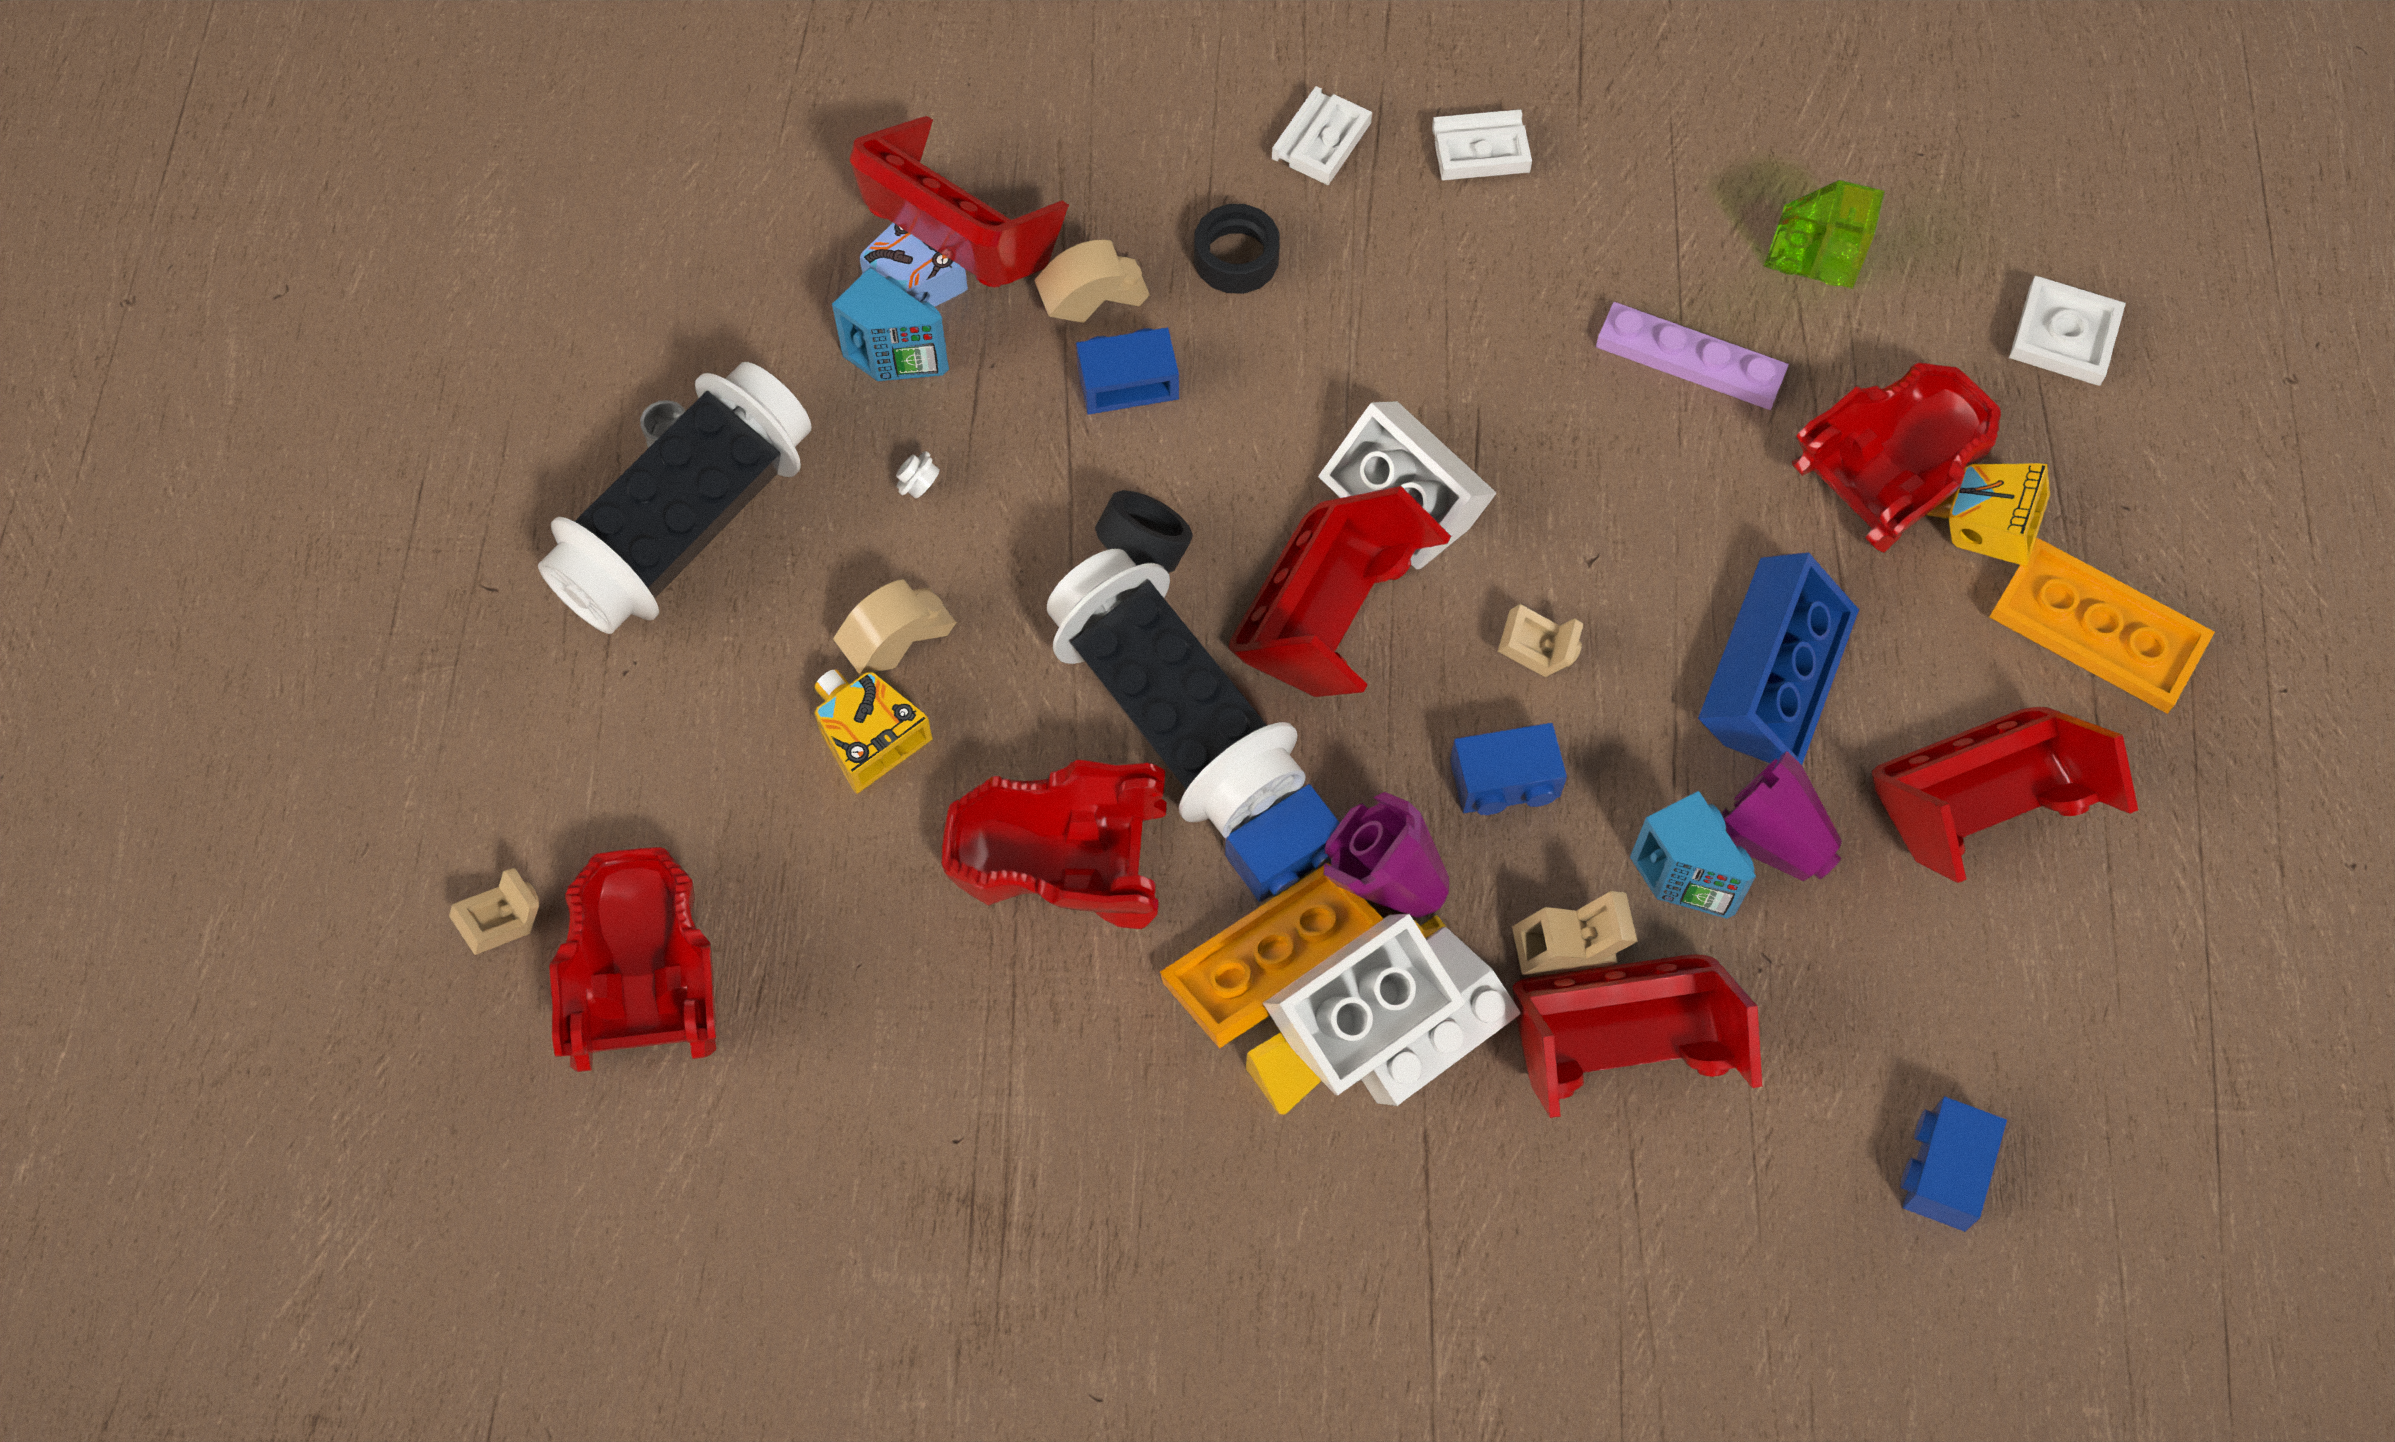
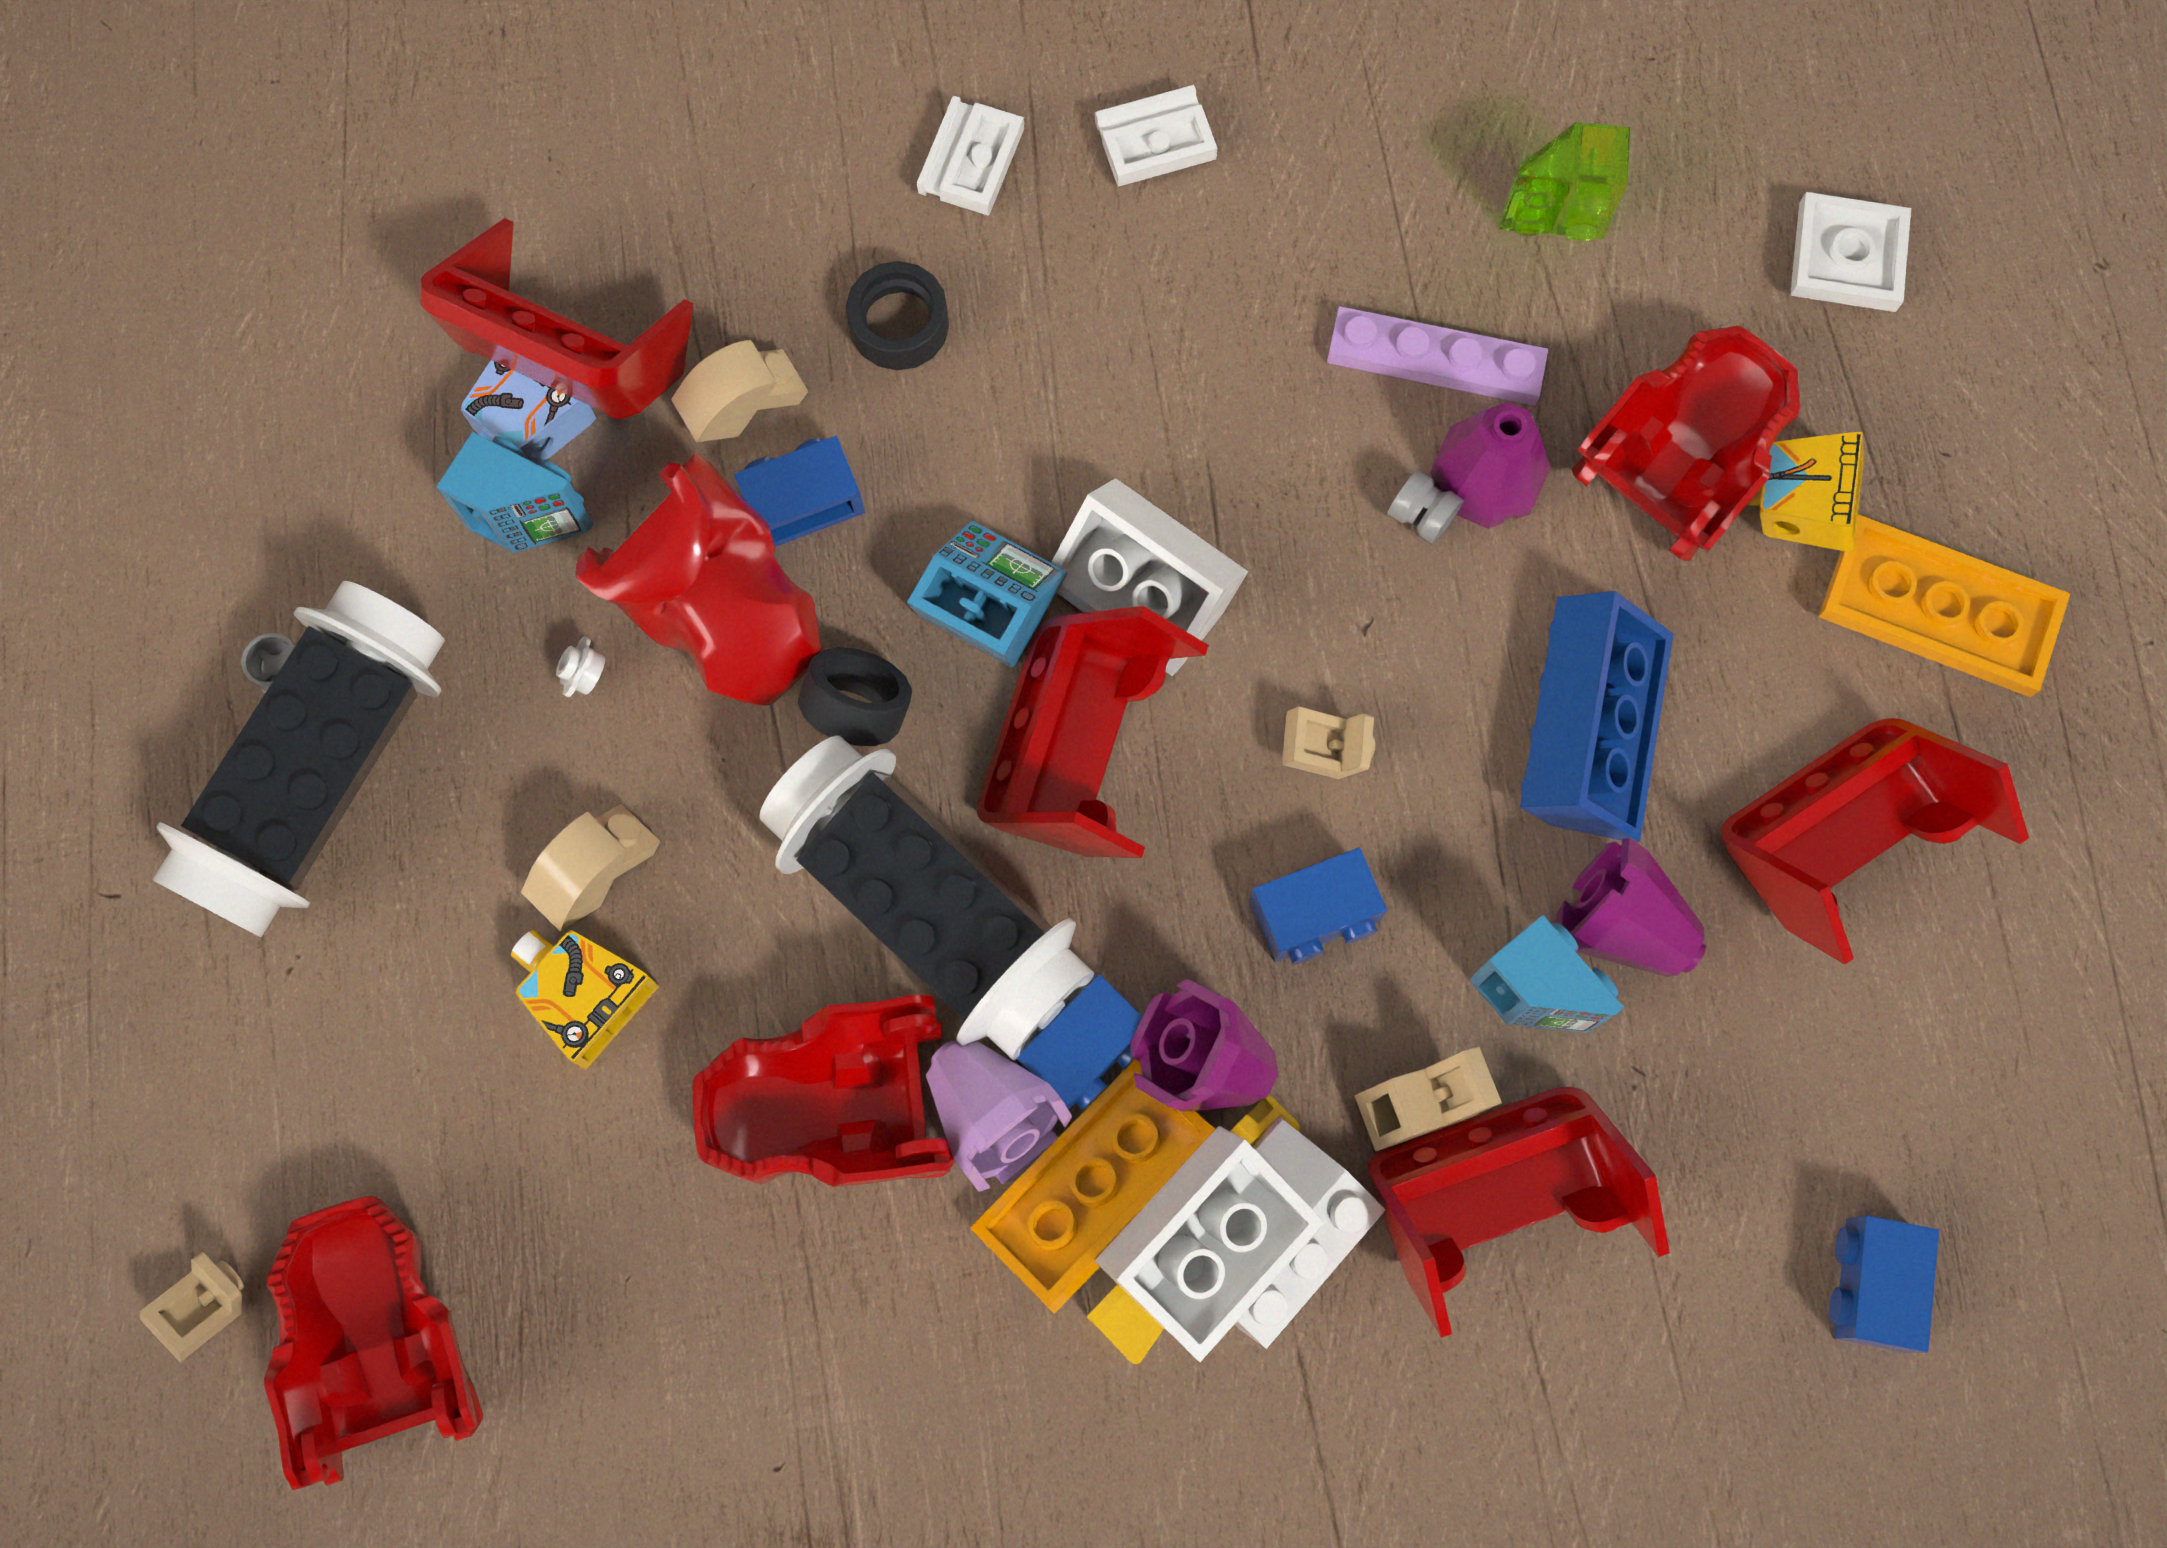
camera: 10 degrees left, 10 degrees up
(1039, 426) = (709, 585): none -> red animal
(1200, 880) = (992, 1111): none -> lavender cone
(1269, 473) = (987, 592): none -> dark azure slope
(1659, 469) = (1425, 507): none -> light grey wheel
(1724, 445) = (1493, 464): none -> magenta cone

